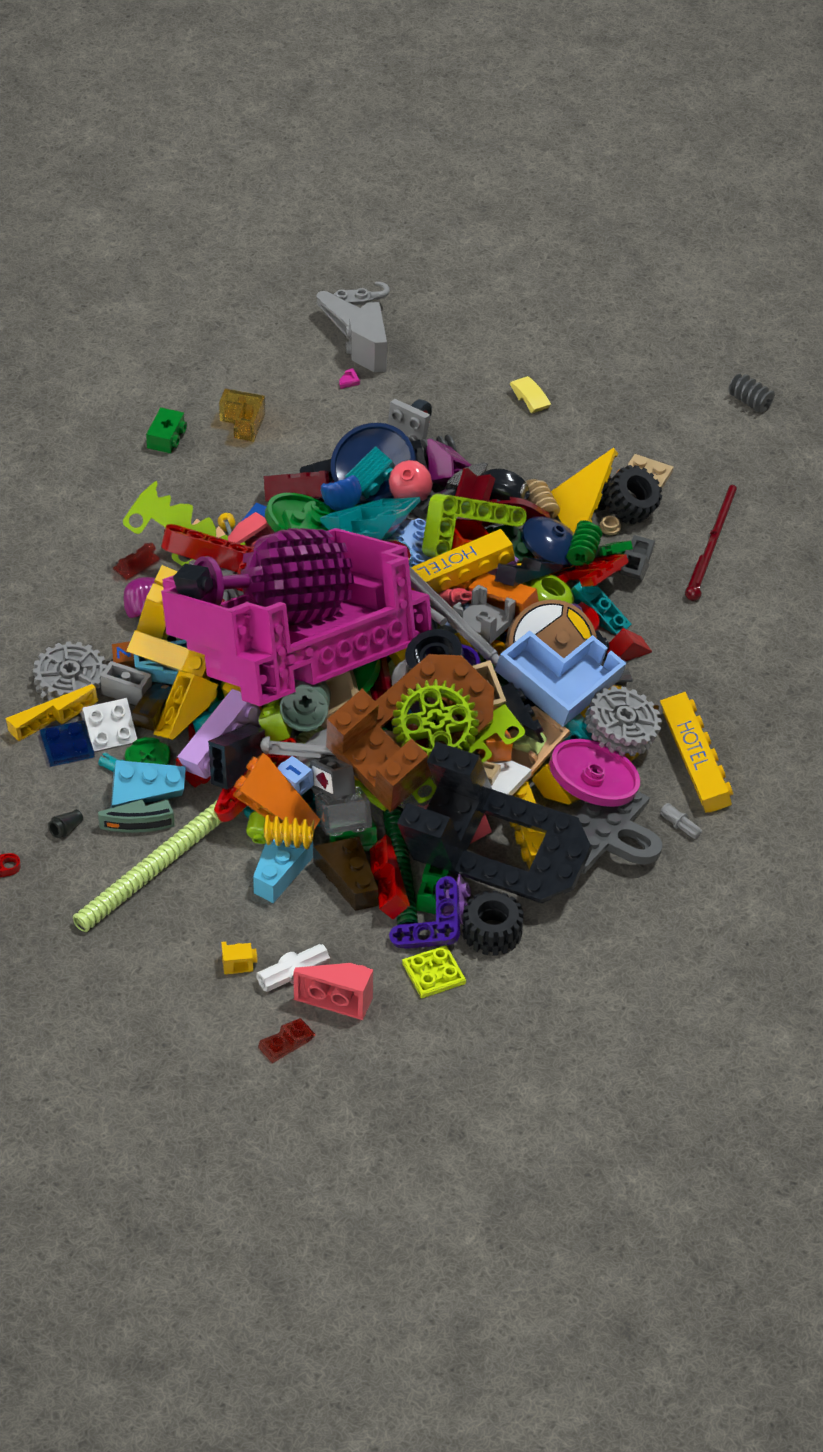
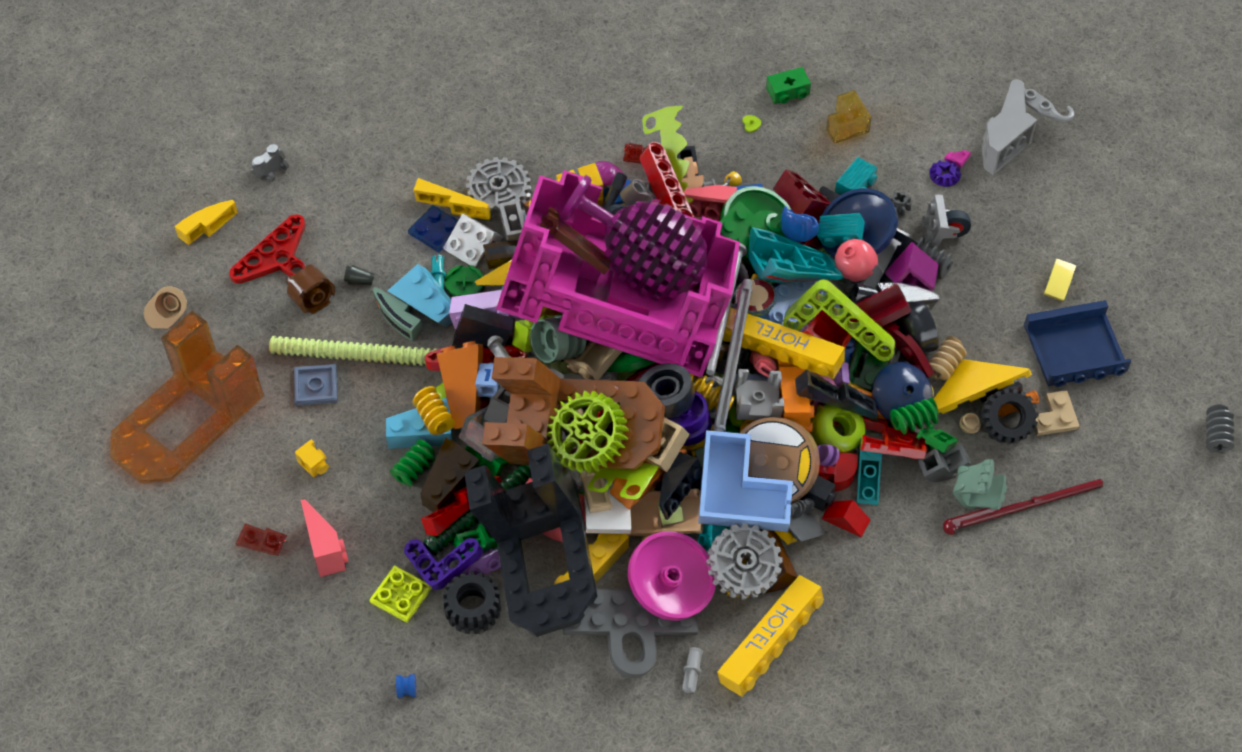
camera: 55 degrees right, 10 degrees up
(52, 859) = (310, 289): none -> reddish brown brick
(87, 983) = (222, 381): none -> clear orange bracket
(154, 917) = (315, 384): none -> sand blue tile
(177, 478) = (751, 123): none -> lime piece
(193, 581) = (555, 188): black slope -> none
(283, 971) = (330, 499): white piece -> none
(308, 446) = (858, 175): none -> teal brick
(312, 887) = (412, 463): none -> green piece
(350, 400) = (946, 179): none -> dark purple gear
(532, 1012) = (406, 685): none -> blue wheel
(597, 423) = (1075, 344): none -> dark blue panel
(679, 549) = (978, 487): none -> sand green piece

